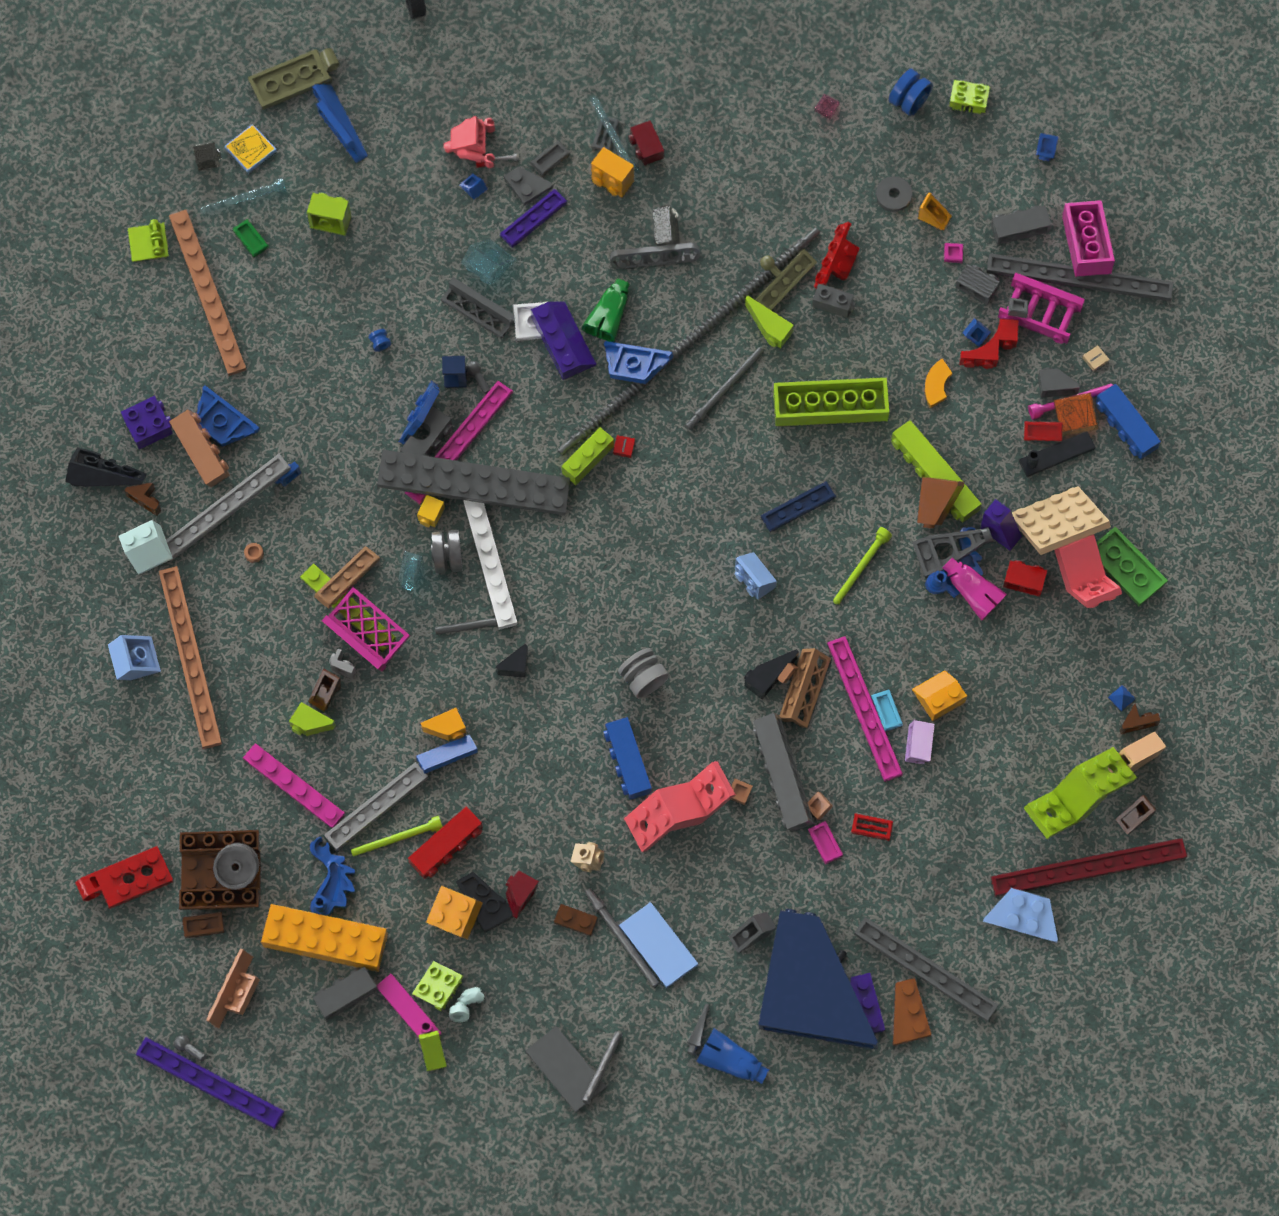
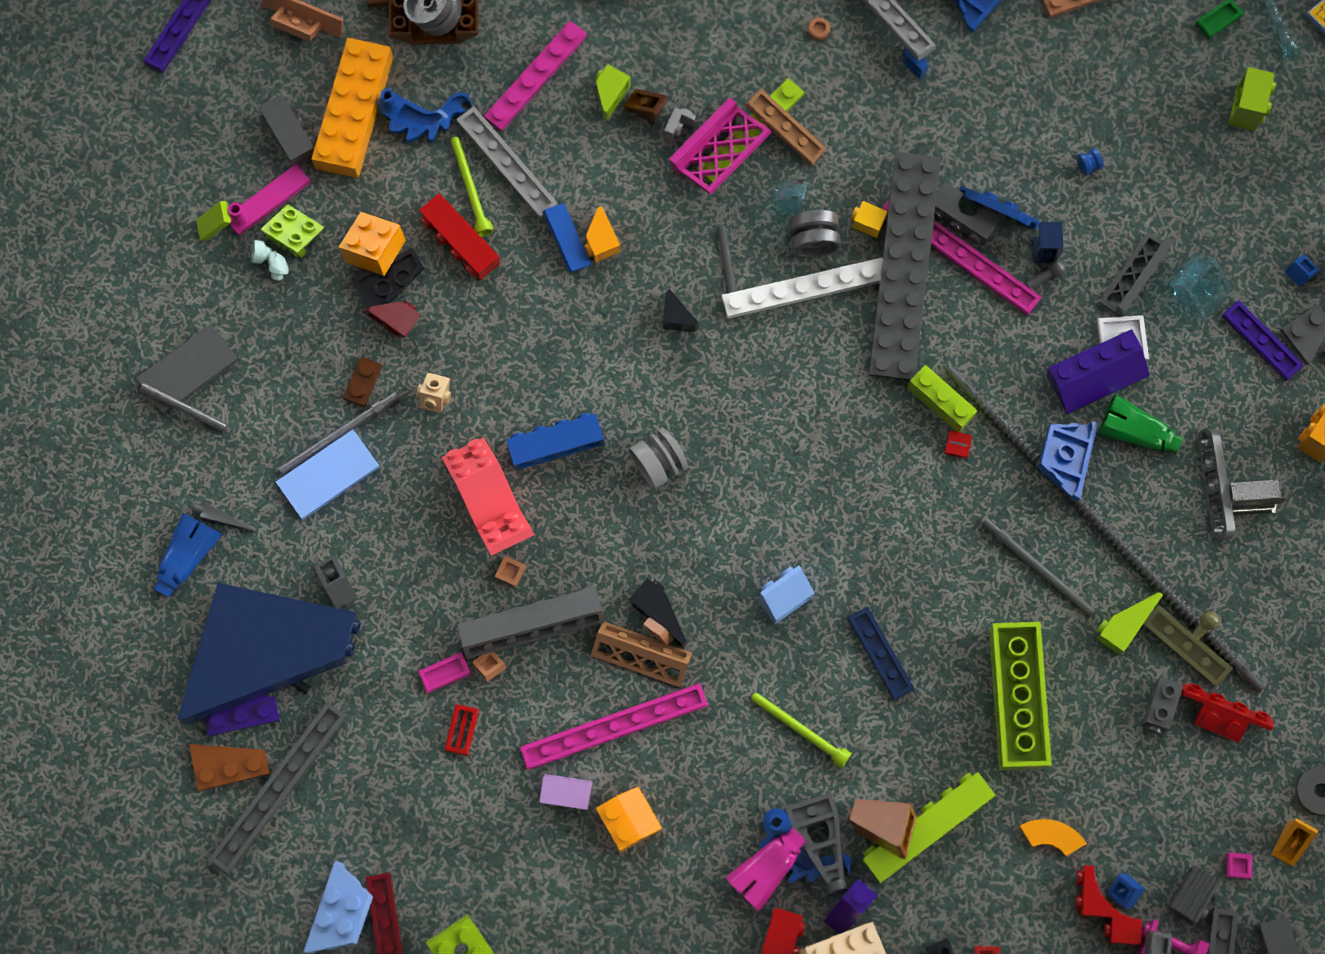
camera: 90 degrees right, 5 degrees up
(886, 710) = (610, 753): medium azure tile -> none

